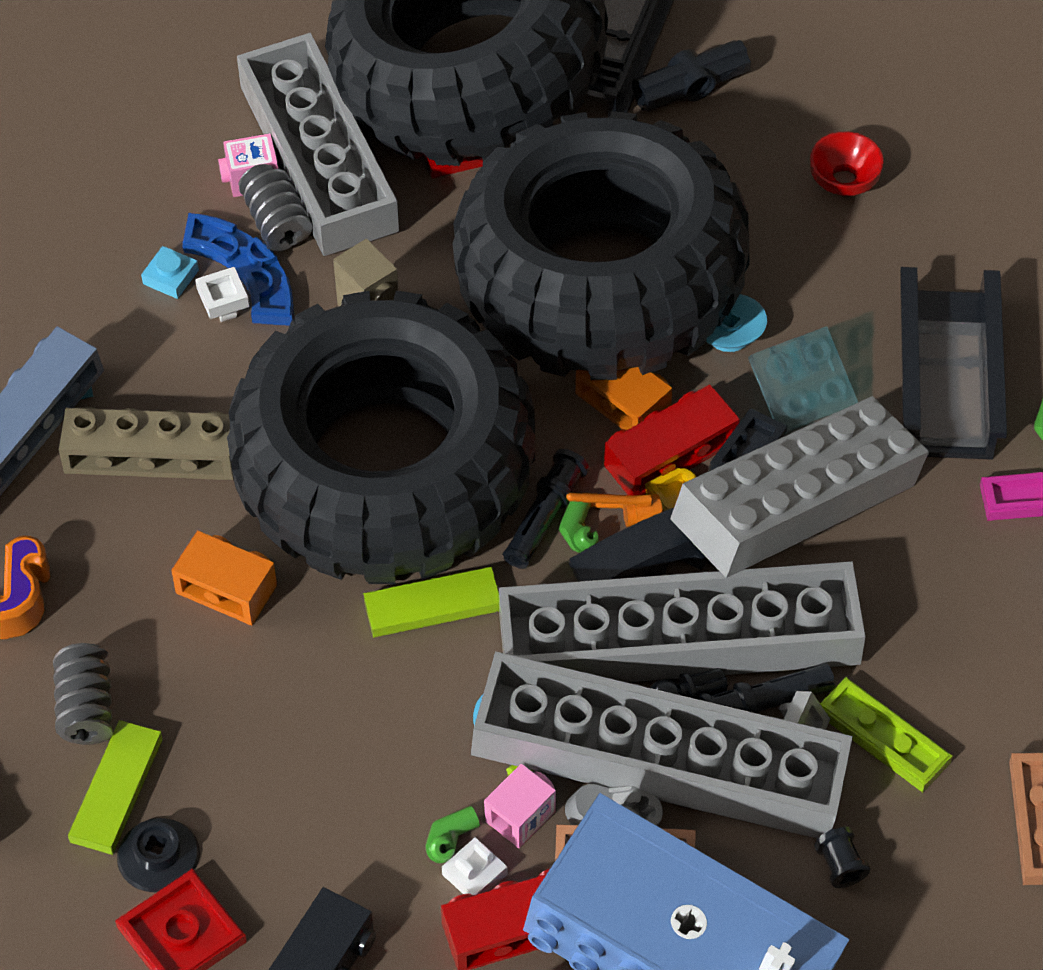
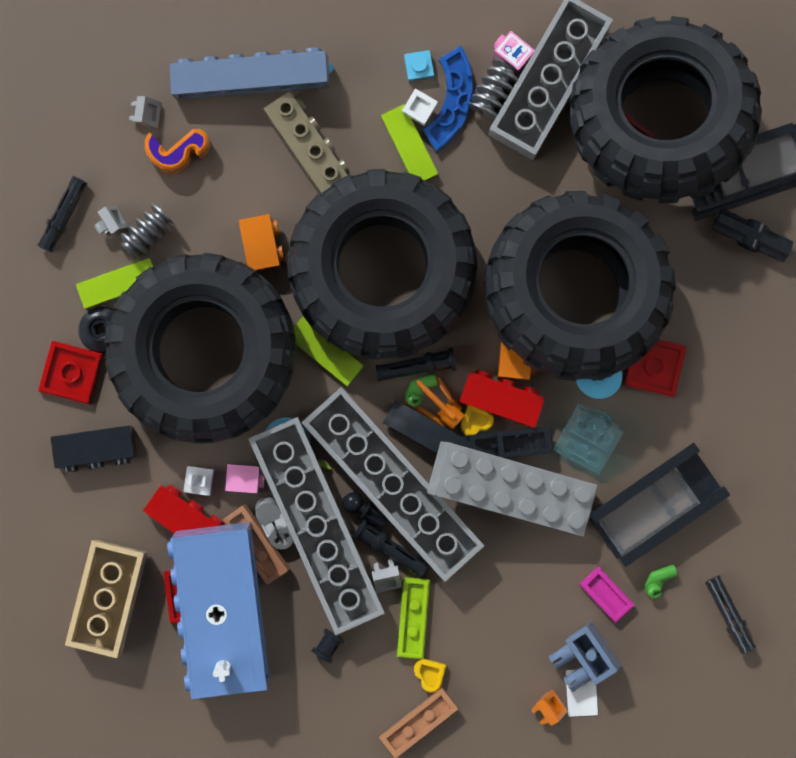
camera: 50 degrees right, 30 degrees up
(27, 730) = (111, 221): none -> light grey tile
(231, 337) = (409, 144): none -> lime tile
(281, 623) = (136, 337): none -> black tyre
(363, 270) = (473, 181): dark tan brick -> none
(445, 833) = (206, 453): bright green arm -> none
(778, 266) = (658, 369): none -> red tile
(846, 153) = (763, 359): red piece -> none
(980, 764) = (430, 673): none -> yellow tile

